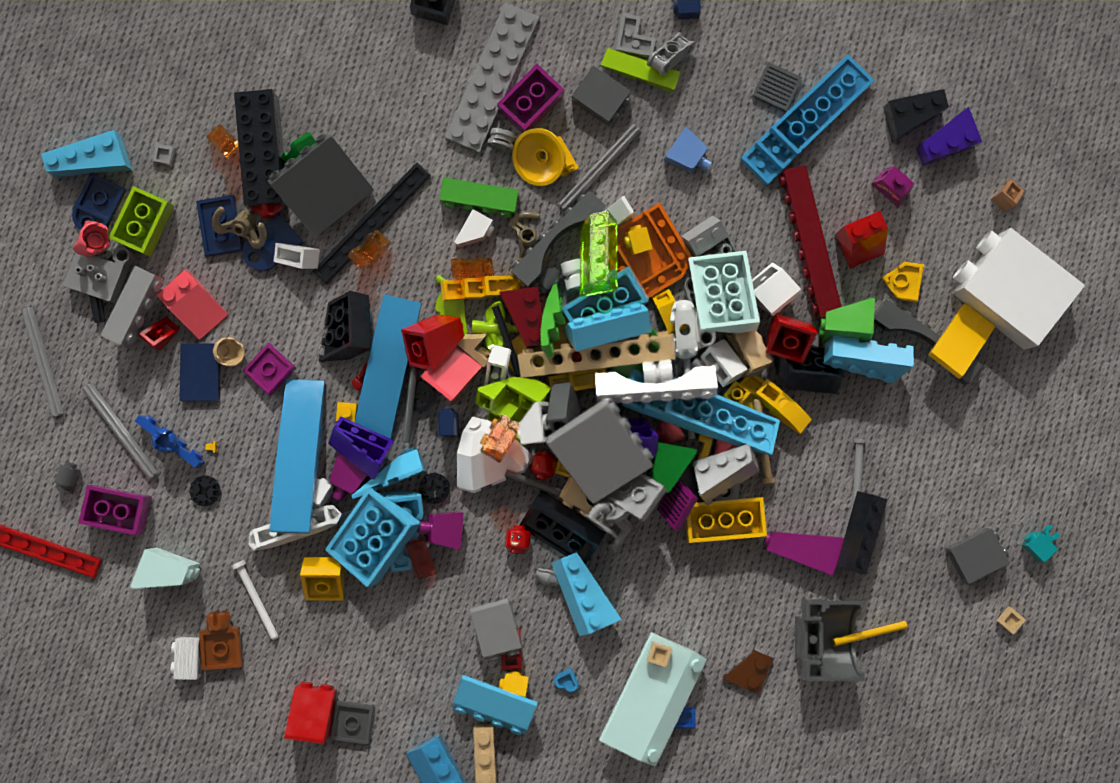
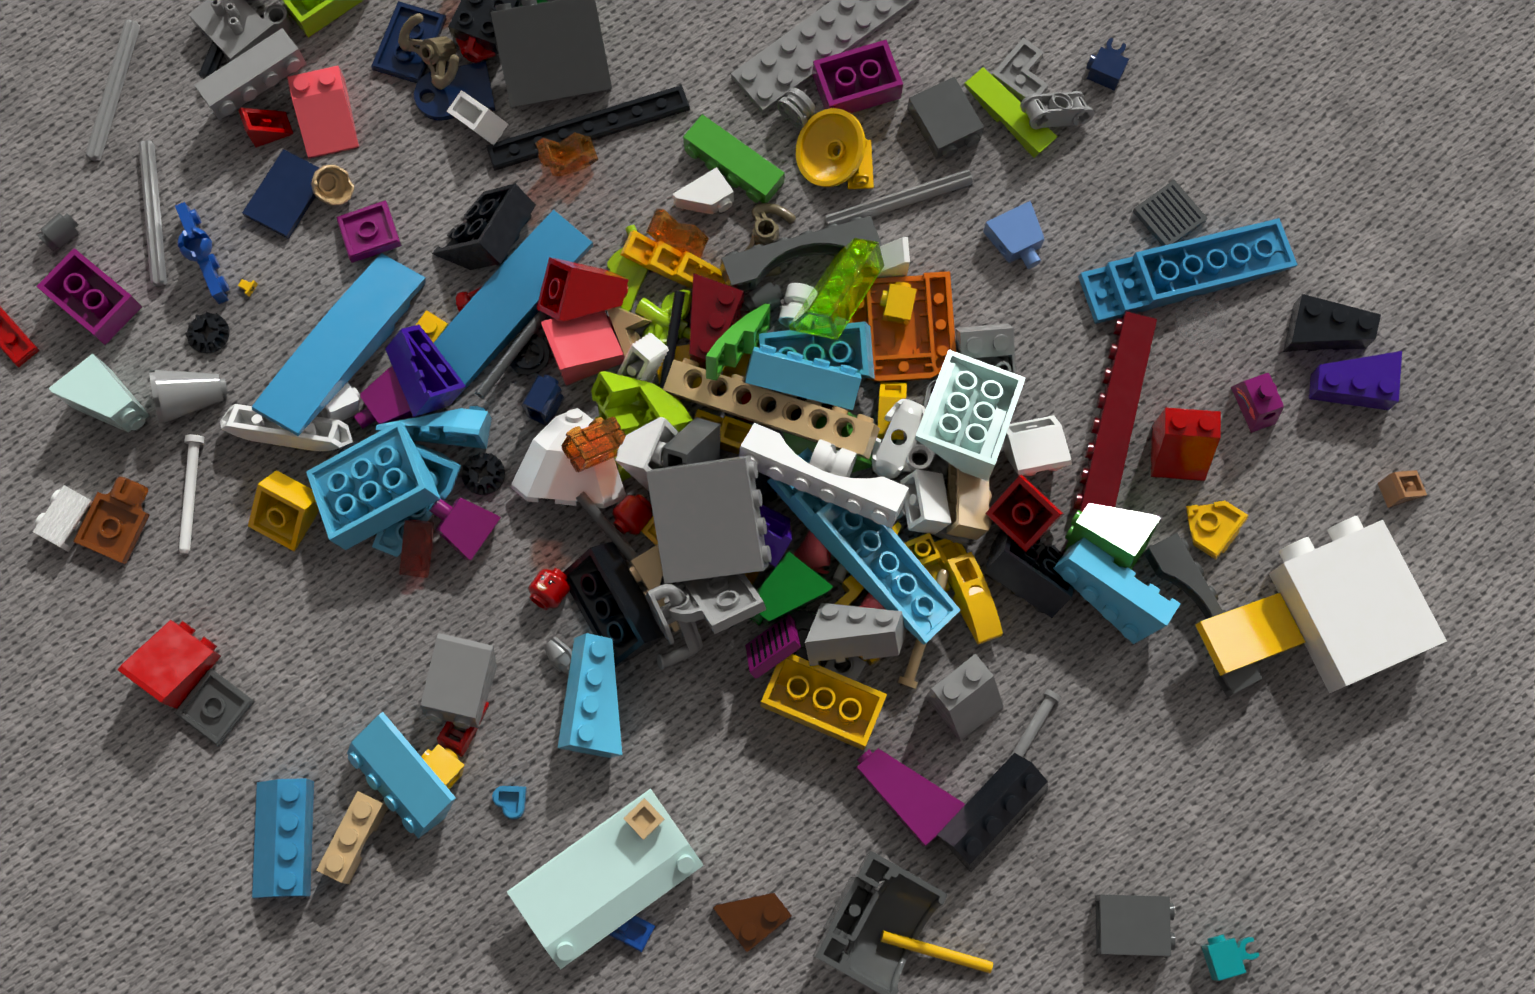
camera: 30 degrees right, 10 degrees down
(215, 539) = (184, 392): none -> light grey cone
(808, 471) = (966, 697): none -> light grey slope

